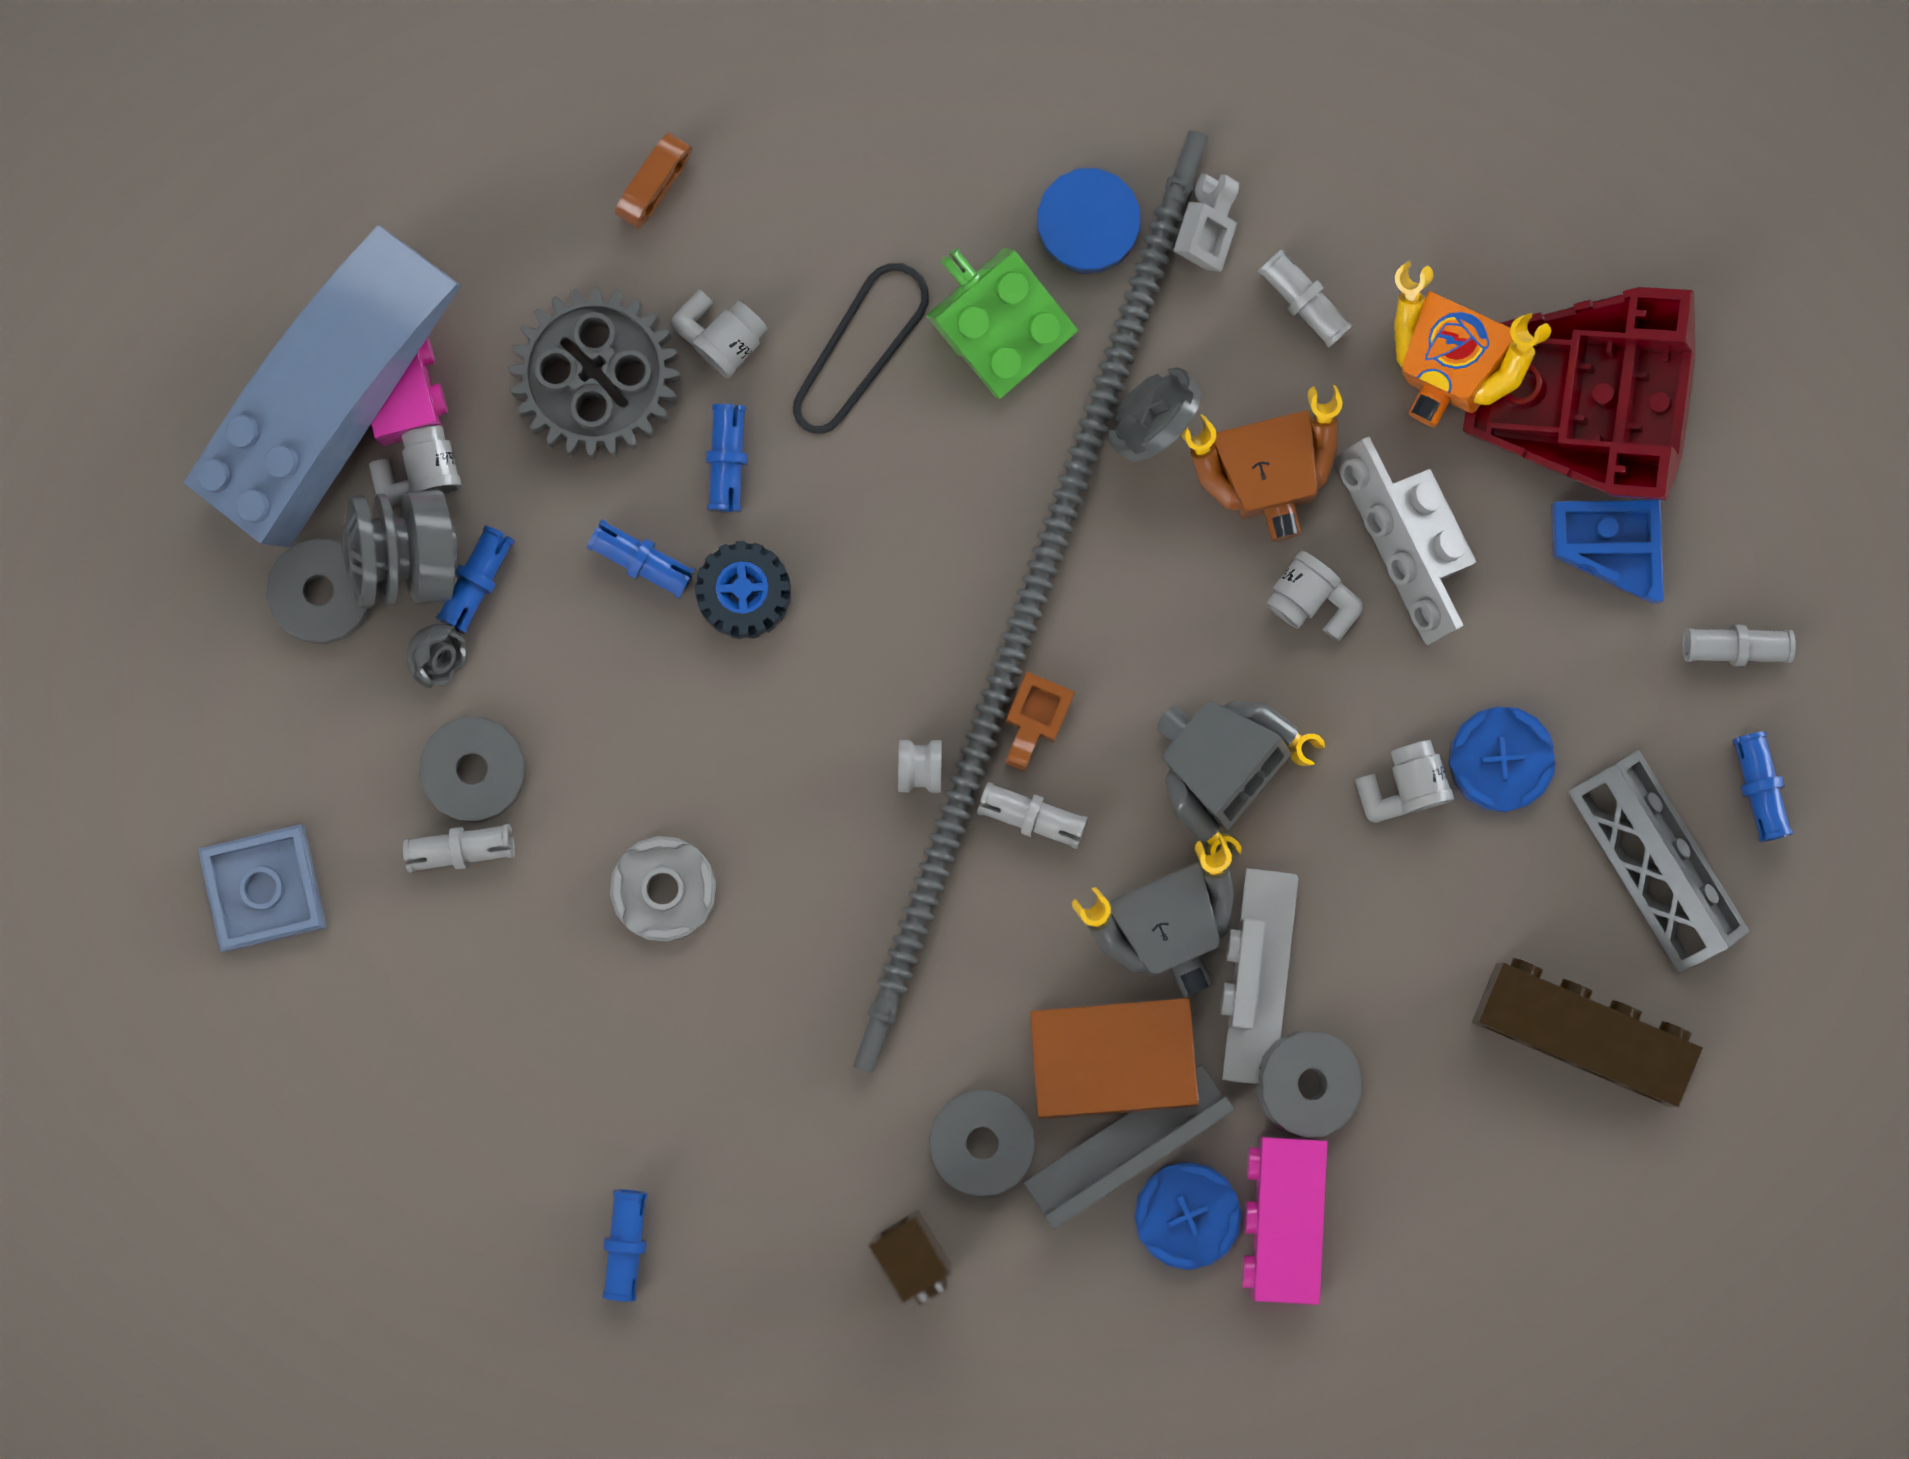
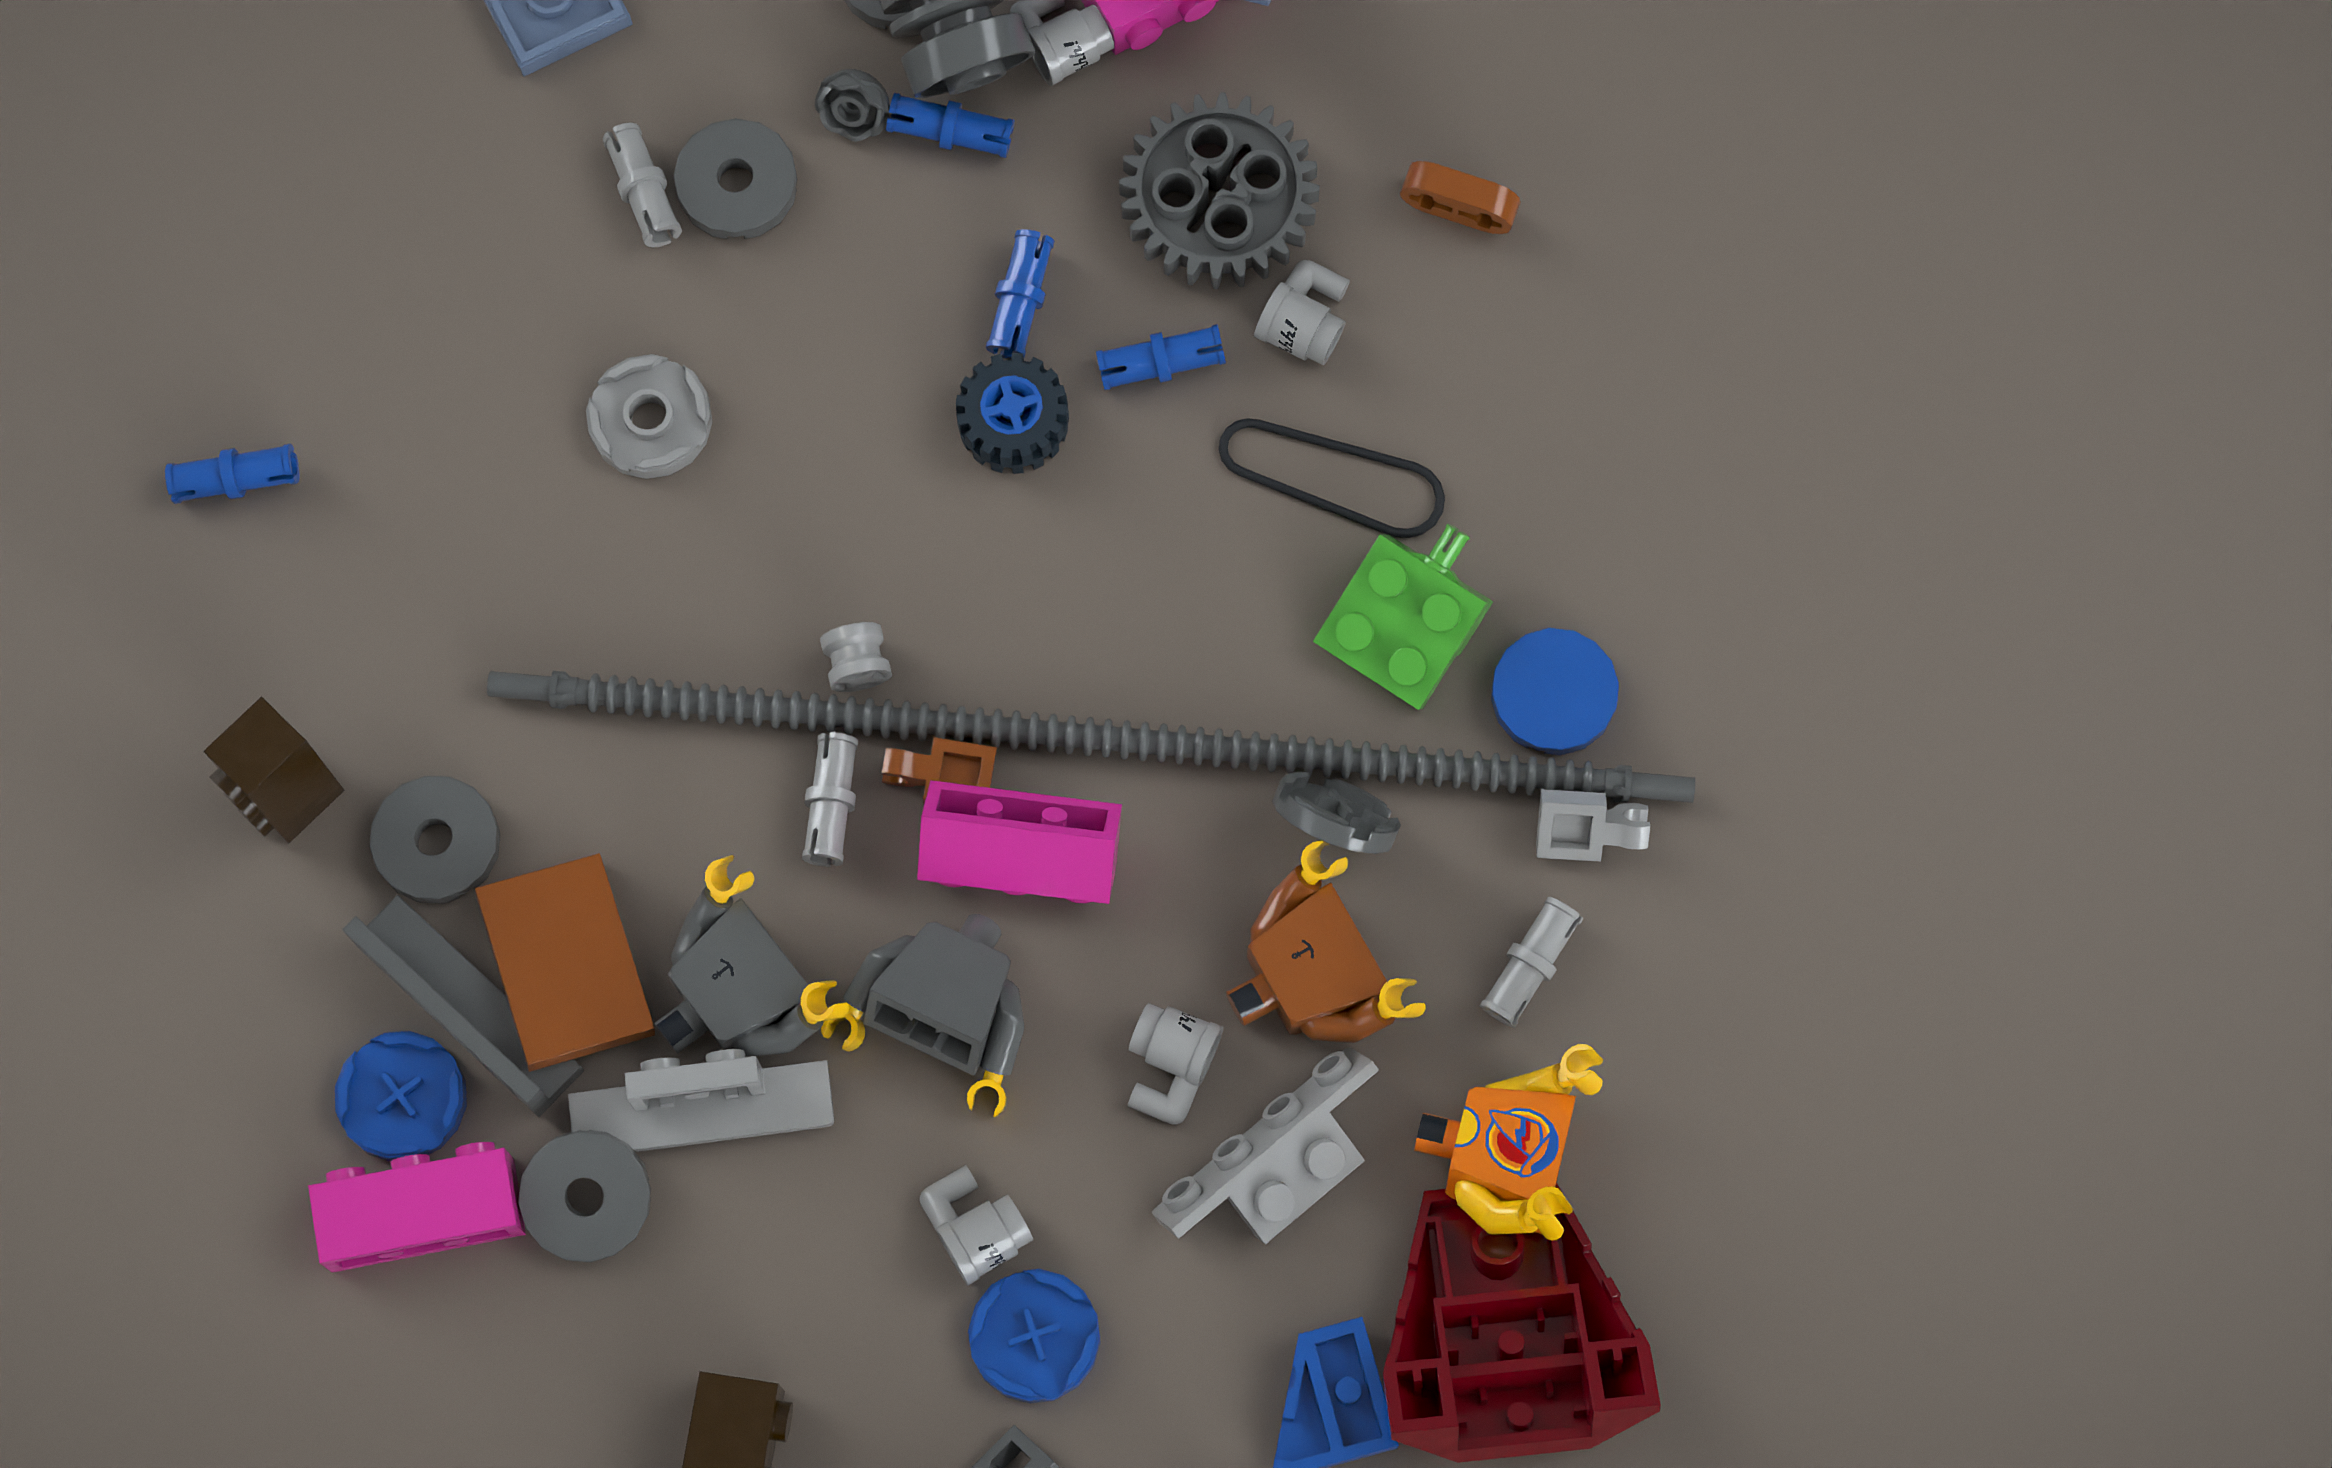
camera: 75 degrees right, 10 degrees down
(1112, 670) = (1019, 842): none -> dark pink brick

